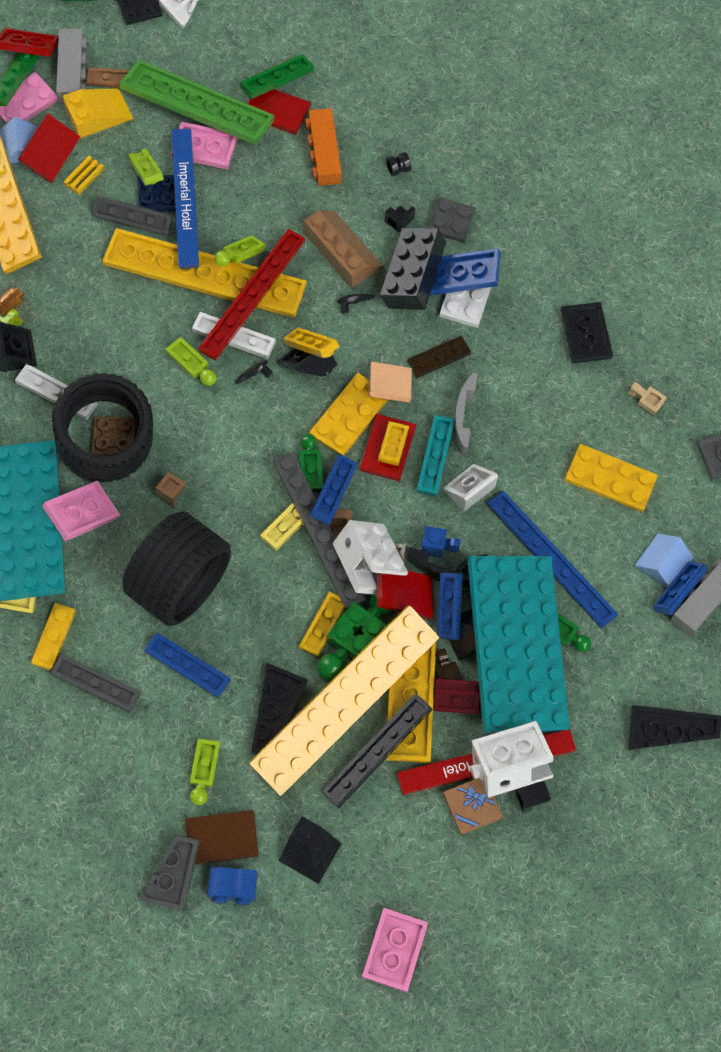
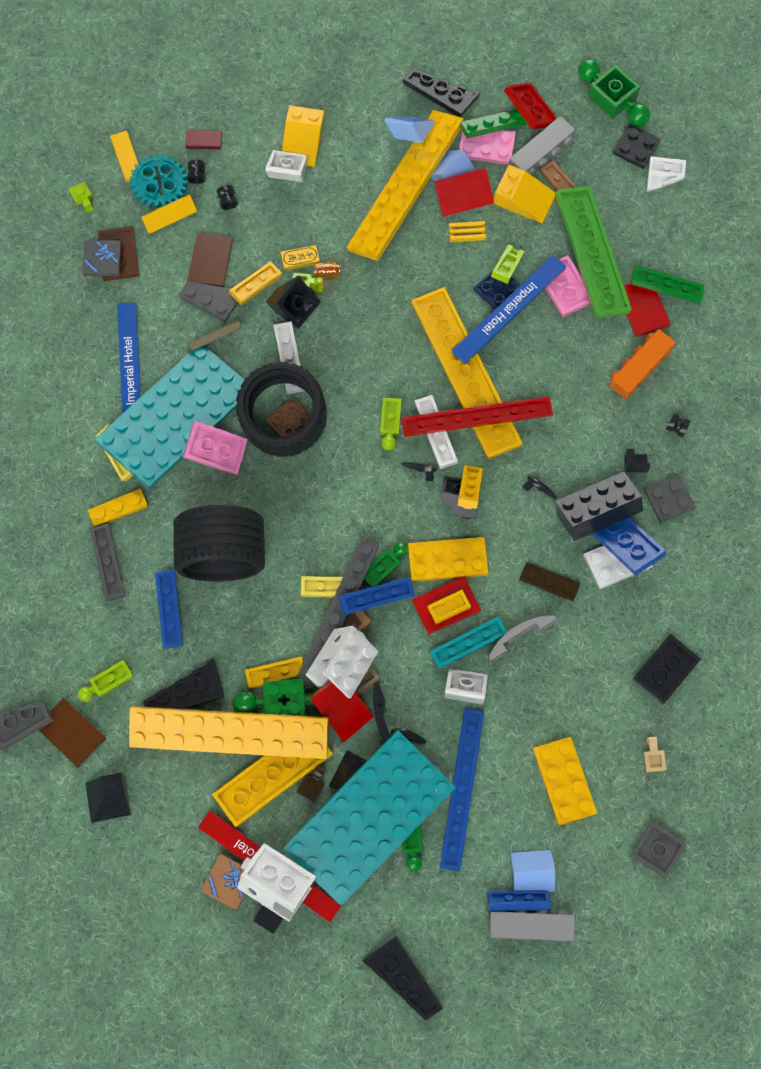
camera: 55 degrees right, 5 degrees up
(132, 215) = (465, 288): dark grey plate -> none
(169, 489) = (282, 489): medium nougat panel -> none
(232, 885) = (43, 767): blue brick -> none
(239, 251) = (502, 380): lime plate -> none
(340, 246) = (574, 443): medium nougat slope -> none
(377, 750) = (212, 784): black tile -> none
(390, 382) = (495, 565): light nougat tile -> none
(395, 950) = (84, 911): bright pink plate -> none
(435, 542) = (400, 699): blue brick -> none
(449, 606) = (358, 746): blue tile -> none
(456, 696) = (297, 805): dark red plate -> none

